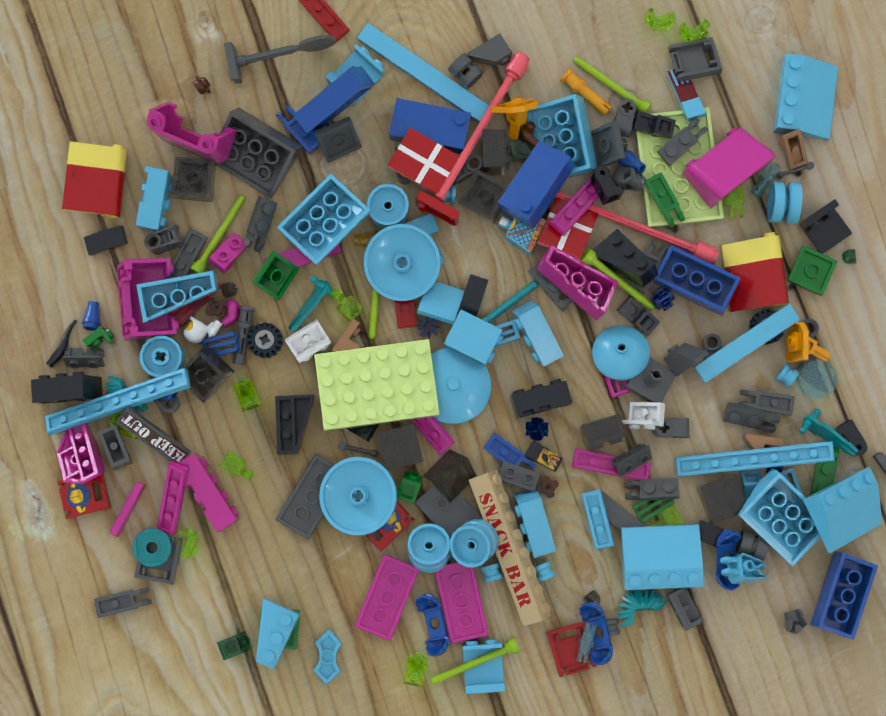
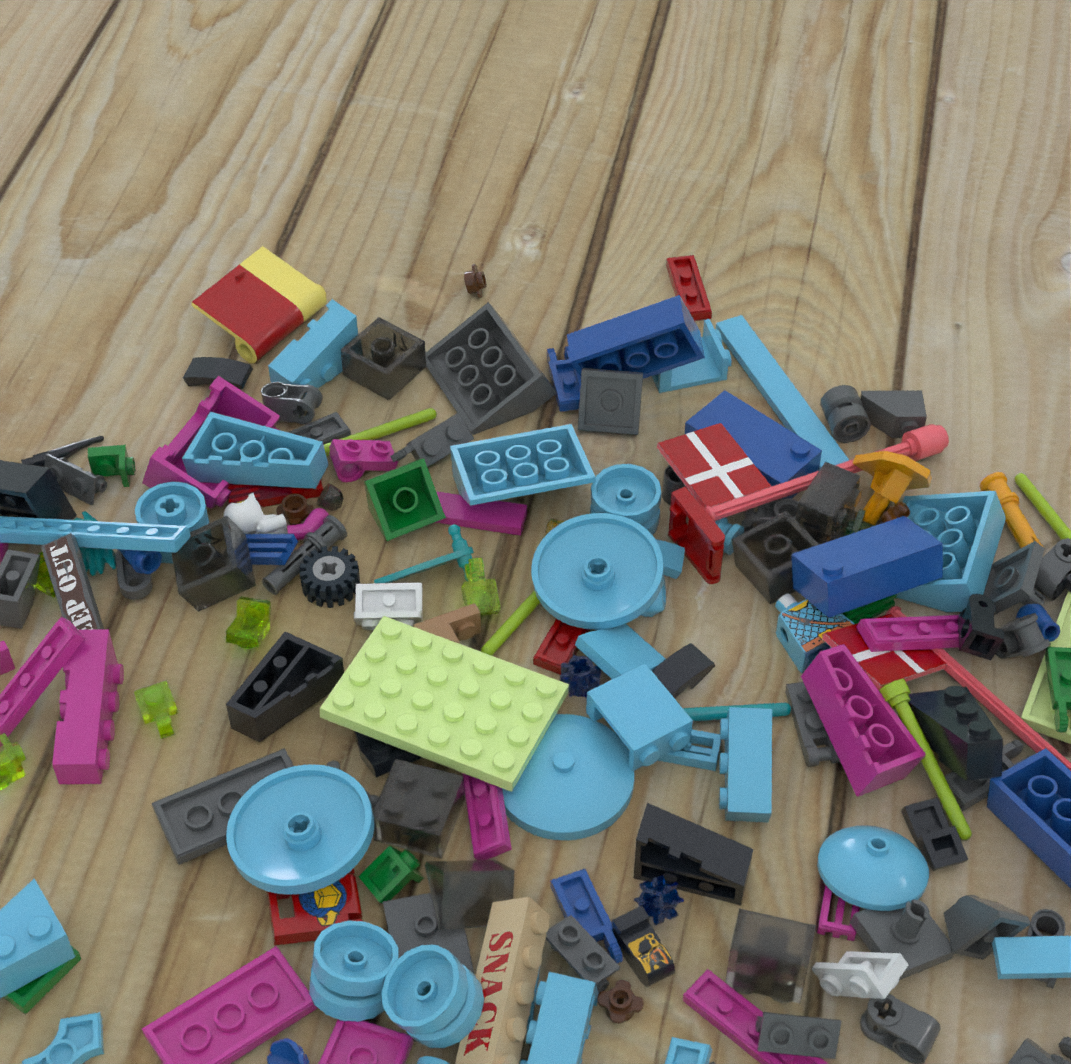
camera: 35 degrees right, 35 degrees down
(91, 318) = (129, 435): blue cone -> none
(167, 126) = (421, 311): dark pink windscreen -> none
(308, 45) = (644, 290): dark grey piece -> none
(662, 298) = (990, 825): clear blue gear -> none

